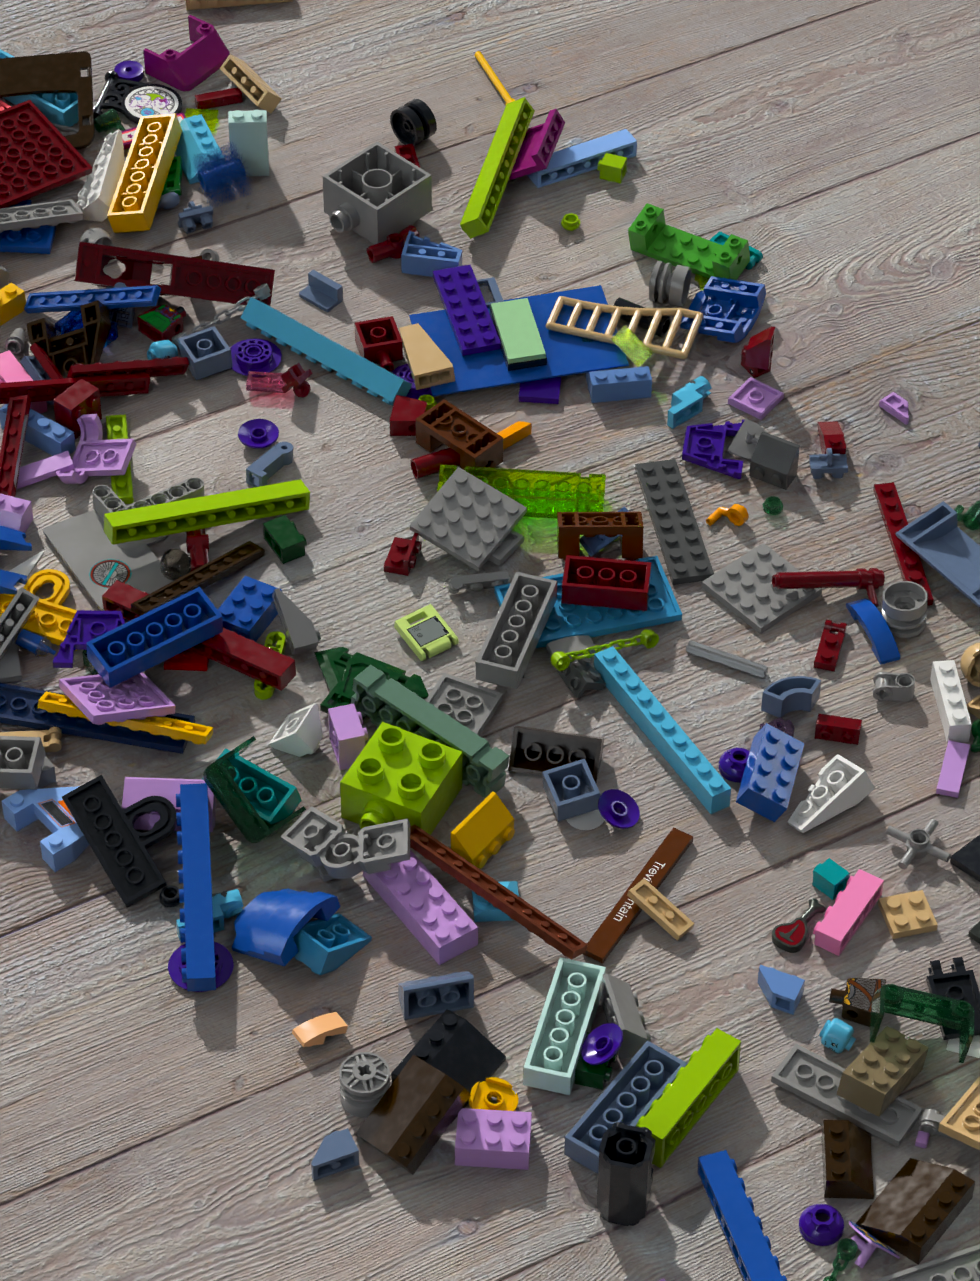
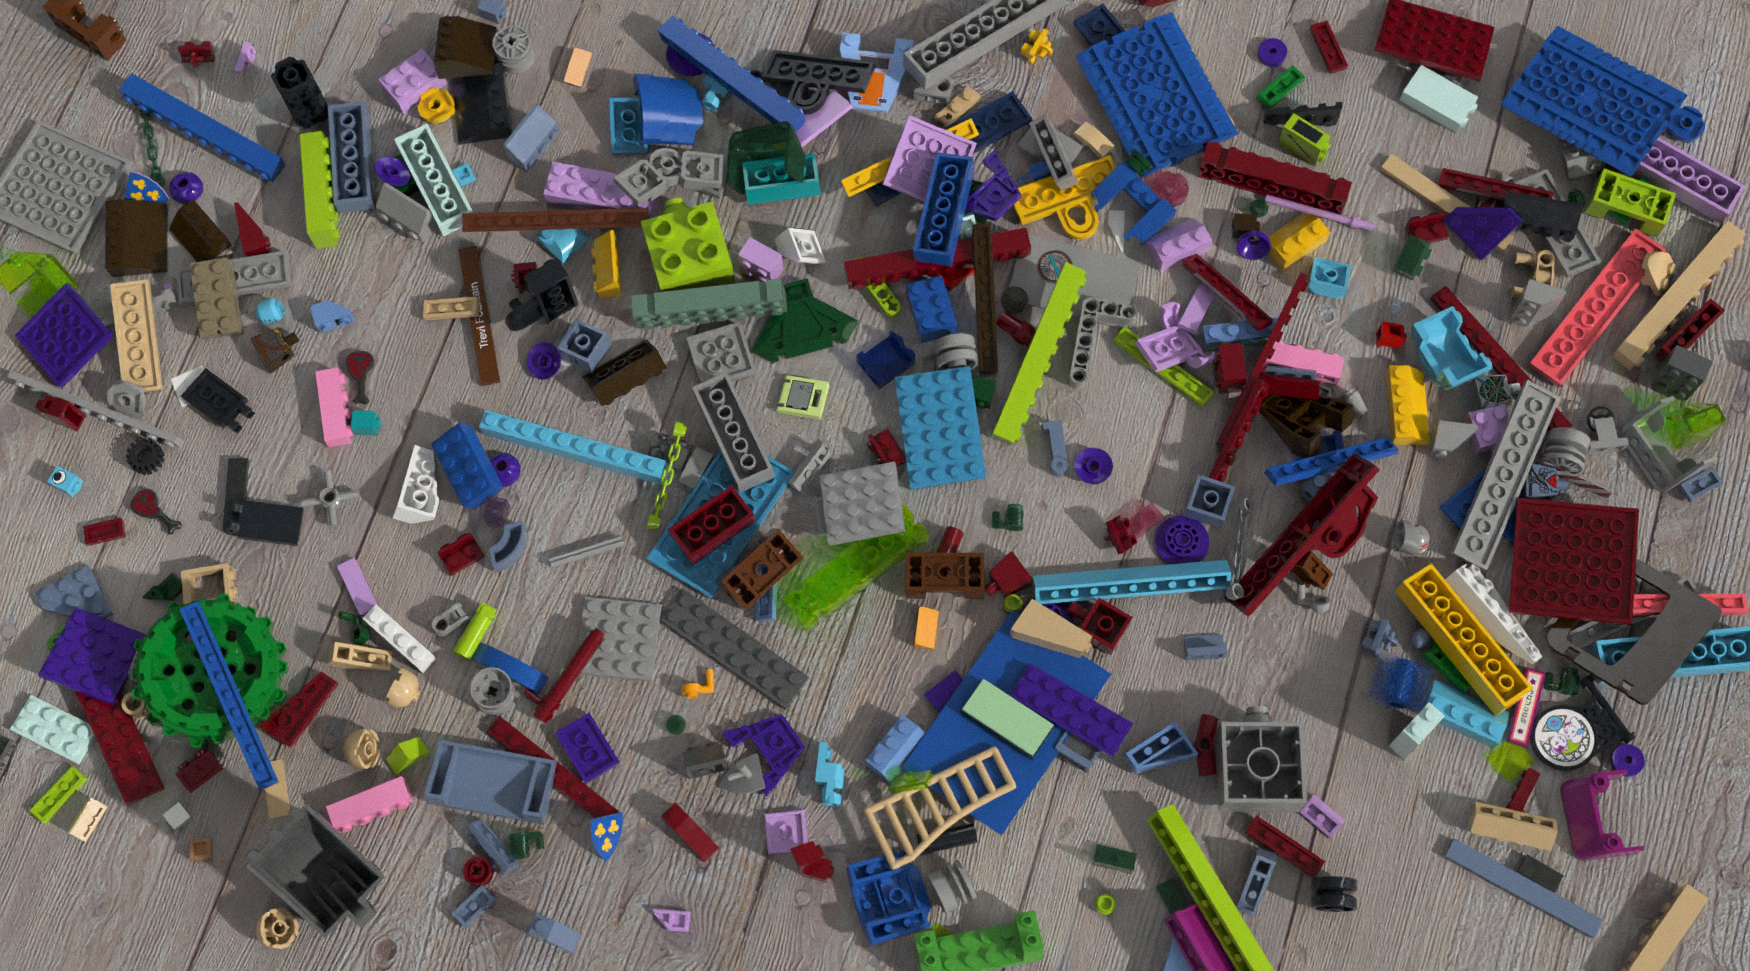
camera: 140 degrees right, 25 degrees up
(161, 322) = (1275, 508): torso -> none
(162, 349) = (1242, 478): medium azure head -> none
(264, 63) = (1540, 873): none -> pearl dark grey tile
(270, 560) = (955, 351): none -> light grey wheel
(285, 65) = (1523, 888): none -> sand blue tile
(296, 625) = (884, 318): light grey slope -> none
(329, 611) = (886, 360): none -> clear blue panel
(343, 530) = (940, 428): none -> dark azure plate
(360, 446) = (1013, 518): none -> clear green piece
(449, 167) = (1256, 881): none -> sand blue slope
(520, 197) = (1172, 896): none -> clear green plate
(527, 1023) = (464, 175): none -> medium azure tile
(536, 235) = (1114, 859): none -> clear green panel
(565, 878) = (519, 272): none -> dark red bracket
(566, 822) = (550, 294): none -> black brick
(795, 1114) = (252, 237): none -> dark red slope
(828, 463) = (666, 797): sand blue hips -> none
(830, 646) = (526, 625): dark red plate -> none
(860, 536) = (587, 748): none -> dark purple plate
(864, 669) = (475, 631): none -> lime piece
(901, 482) = (606, 833): none -> blue shield
(907, 914) = (298, 442): tan plate -> none
(924, 1008) = (224, 356): clear green windscreen -> none

